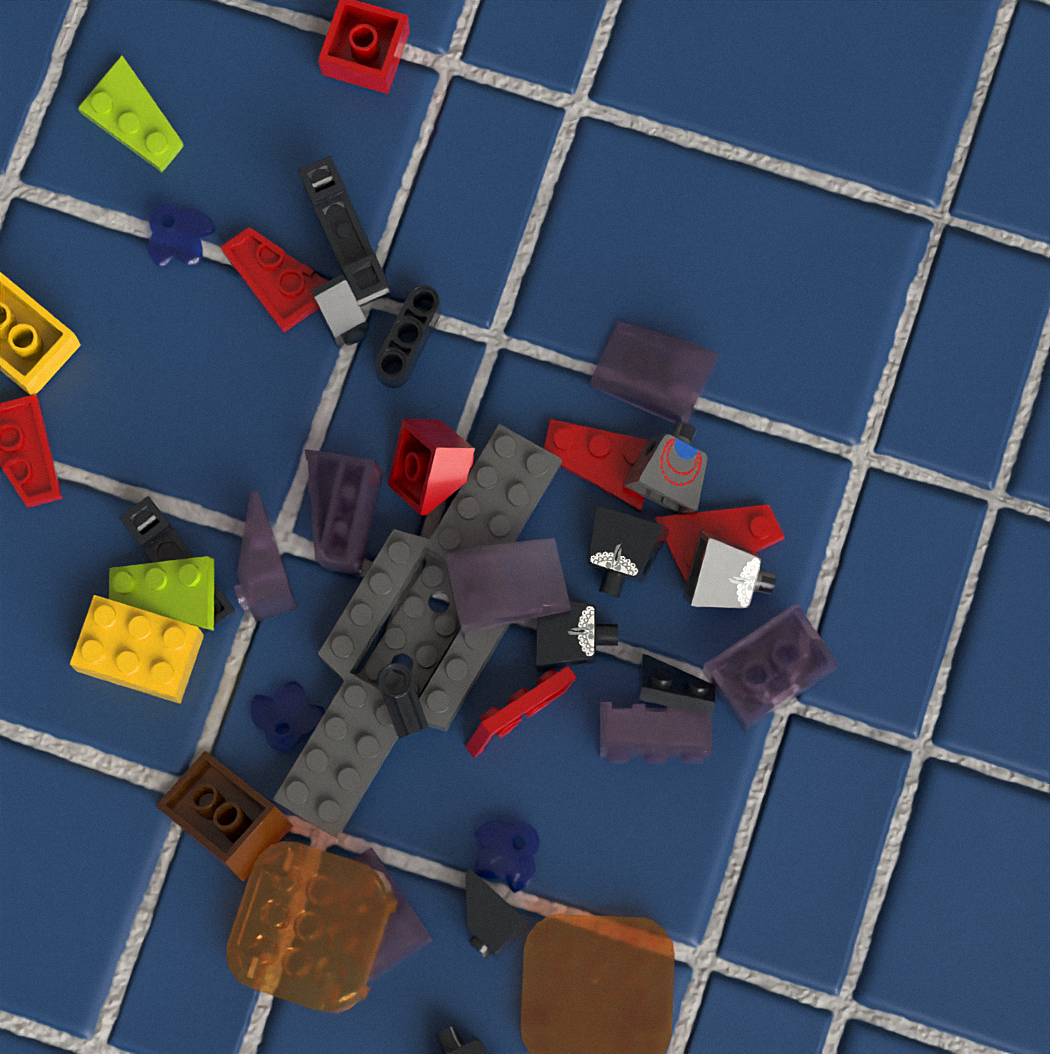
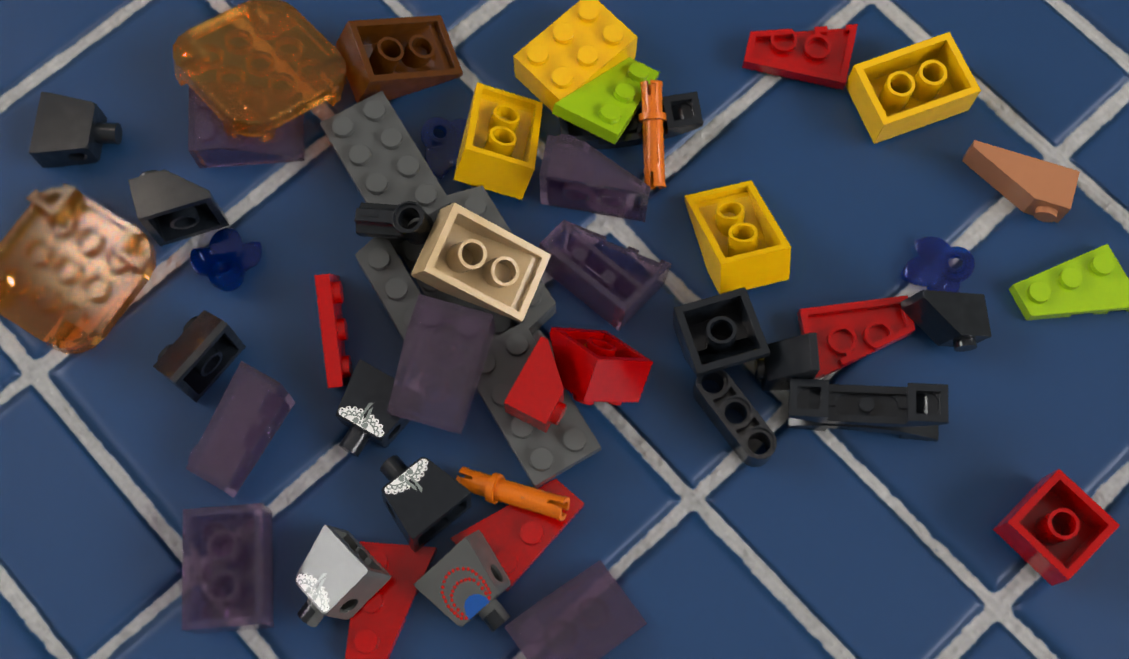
camera: 115 degrees right, 5 degrees down
(54, 192) = (1027, 182): none -> nougat slope
(168, 542) = (653, 133): none -> orange pin
(224, 200) = (950, 317): none -> black slope
(240, 415) = (738, 237): none -> yellow slope
(261, 668) = (499, 141): none -> yellow slope
(347, 377) = (719, 332): none -> black slope
(399, 603) = (480, 263): none -> tan slope
(482, 491) = (538, 390): none -> red slope
(576, 477) = (497, 488): none -> orange pin
(609, 812) = (199, 354): none -> black slope
(674, 687) = (265, 468): black wing -> none

